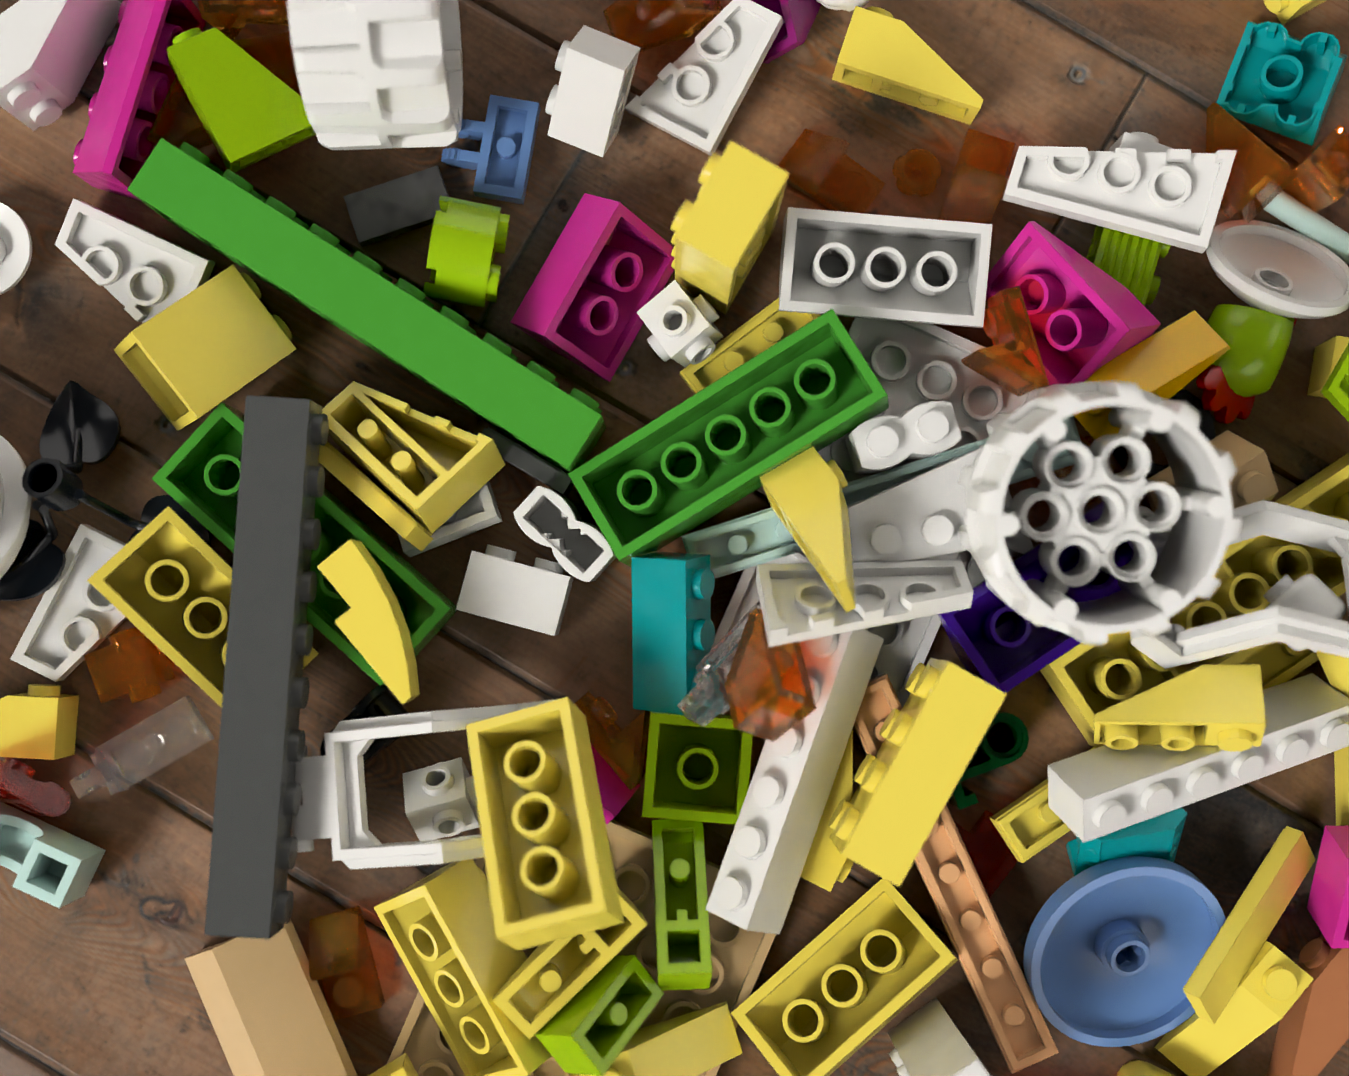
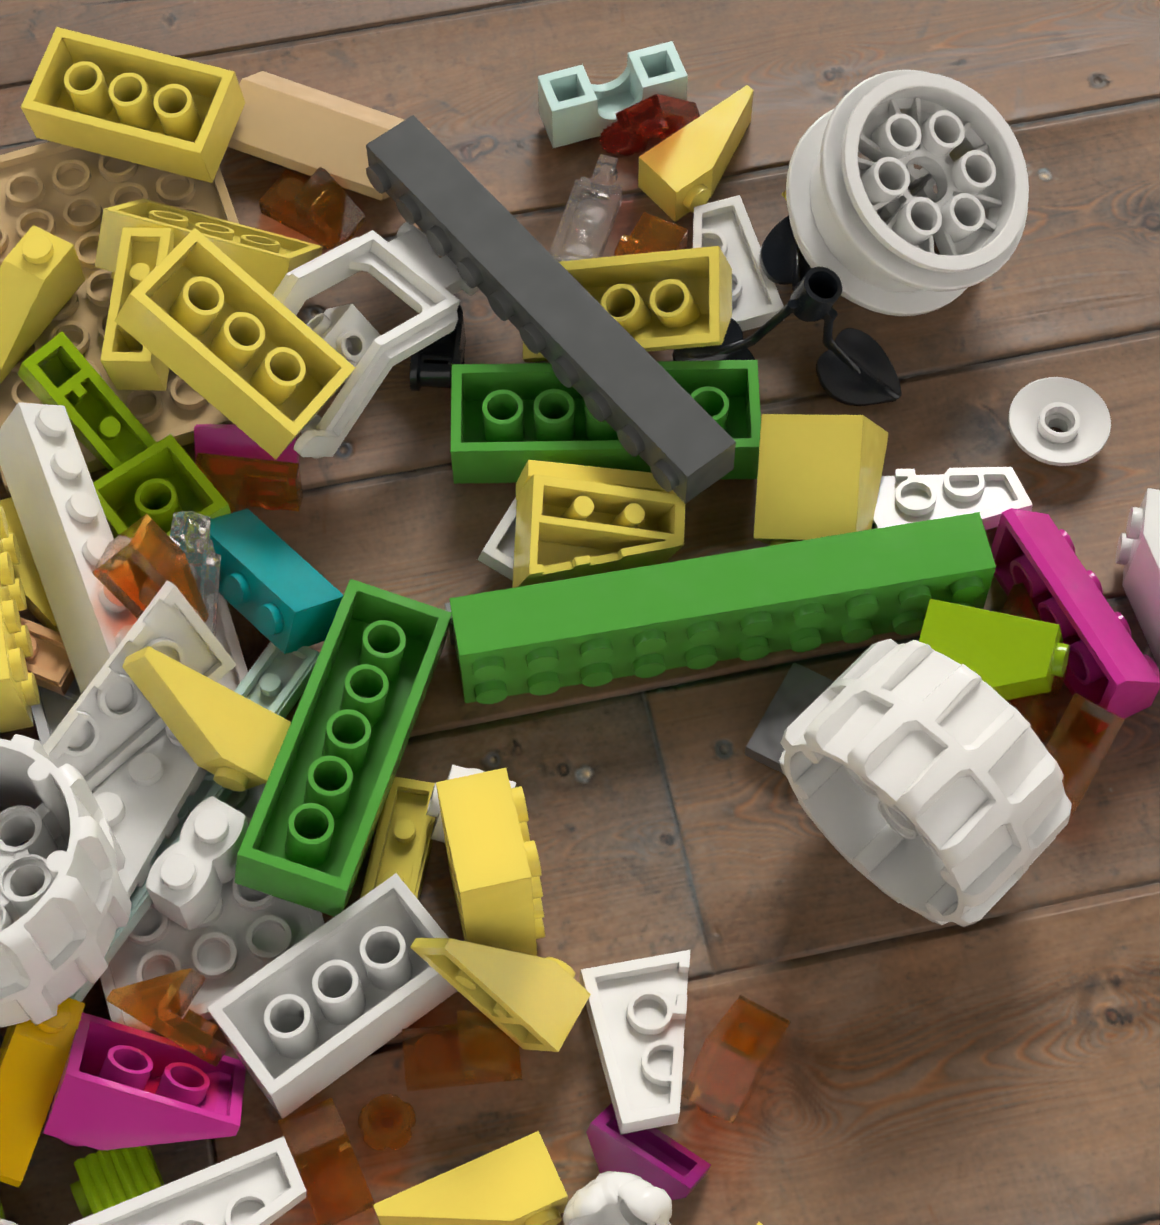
camera: 140 degrees right, 25 degrees down
(375, 618) = (494, 390): light yellow slope -> none
(464, 250) = (697, 711): lime brick -> none
(505, 149) = (754, 832): medium blue hinge -> none
(514, 591) = (418, 521): white brick -> none
(556, 523) = (422, 575): white brick -> none
(591, 90) = (723, 921): white brick -> none
(595, 284) = (575, 783): dark pink slope -> none
(601, 1017) = (80, 284): lime brick -> none
(771, 139) = (520, 993): none -> light yellow slope

